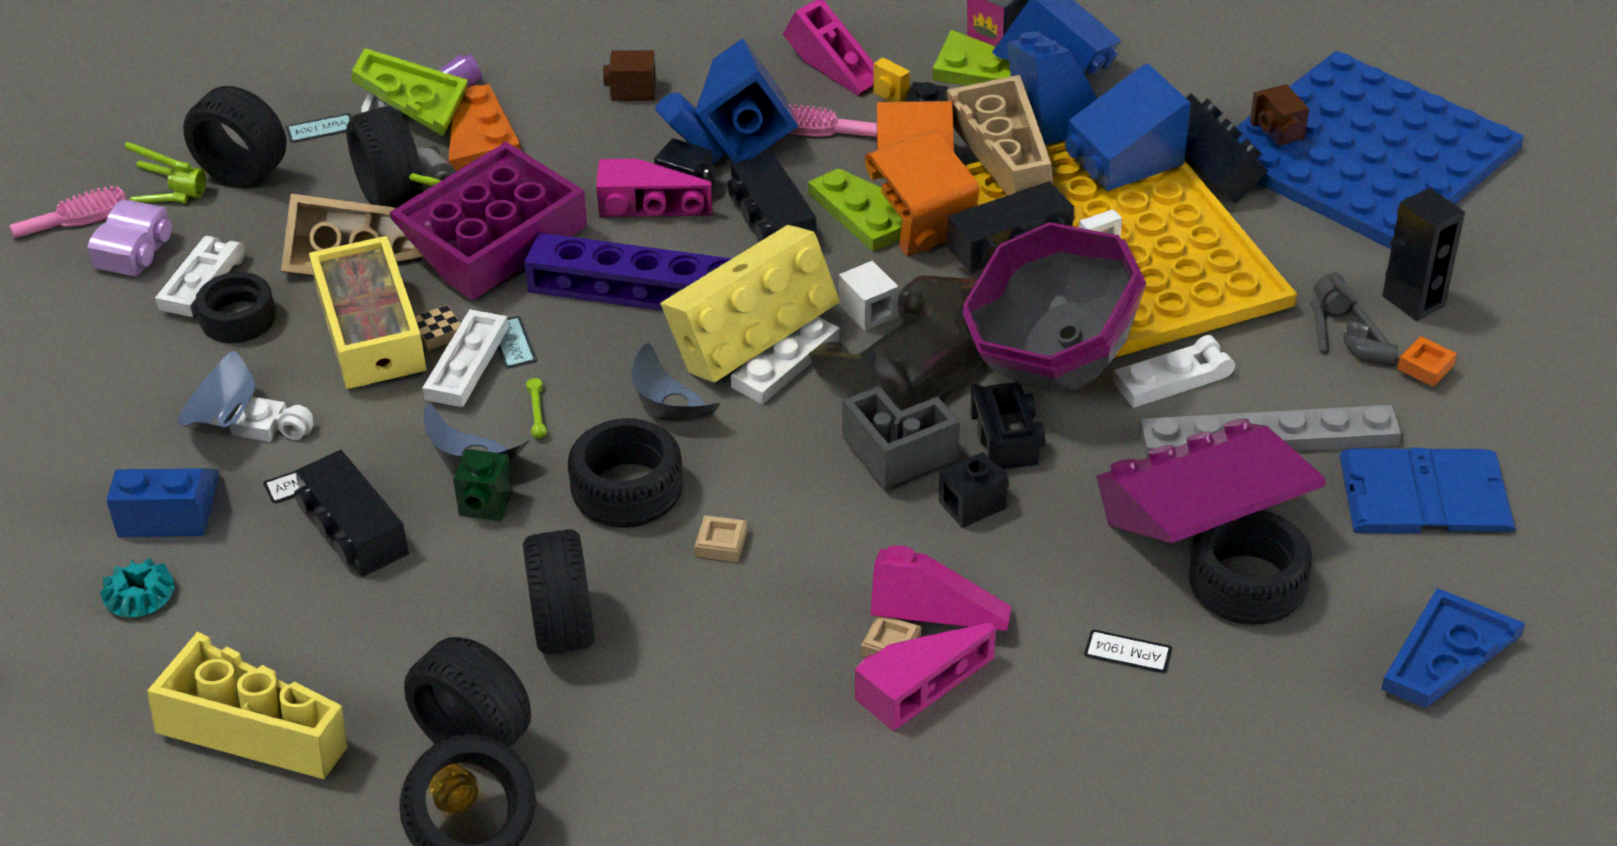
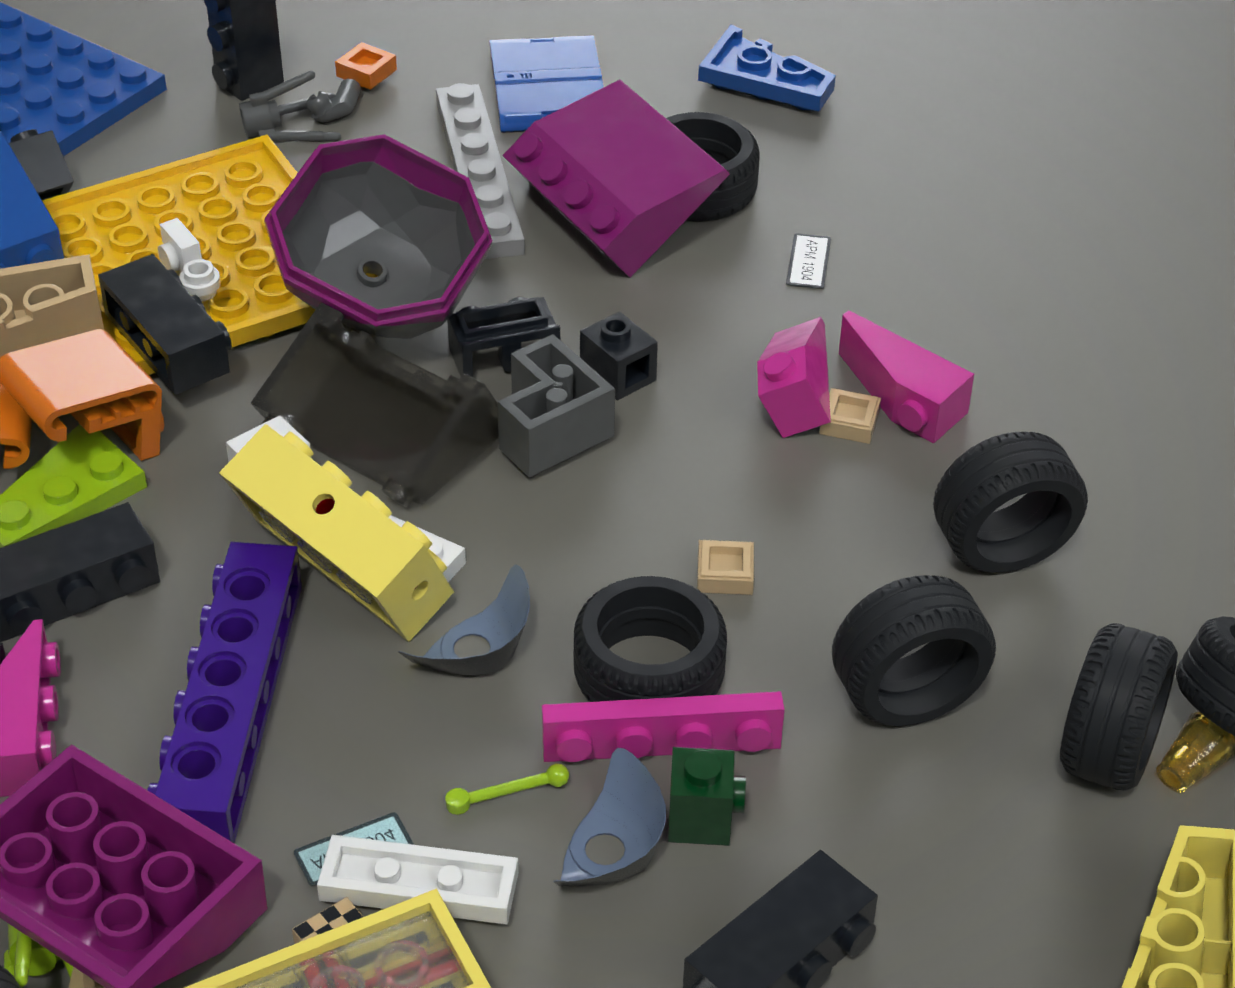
camera: 100 degrees left, 0 degrees up
(553, 464) = (658, 724): none -> dark pink plate
(707, 680) = (992, 476): none -> black tyre

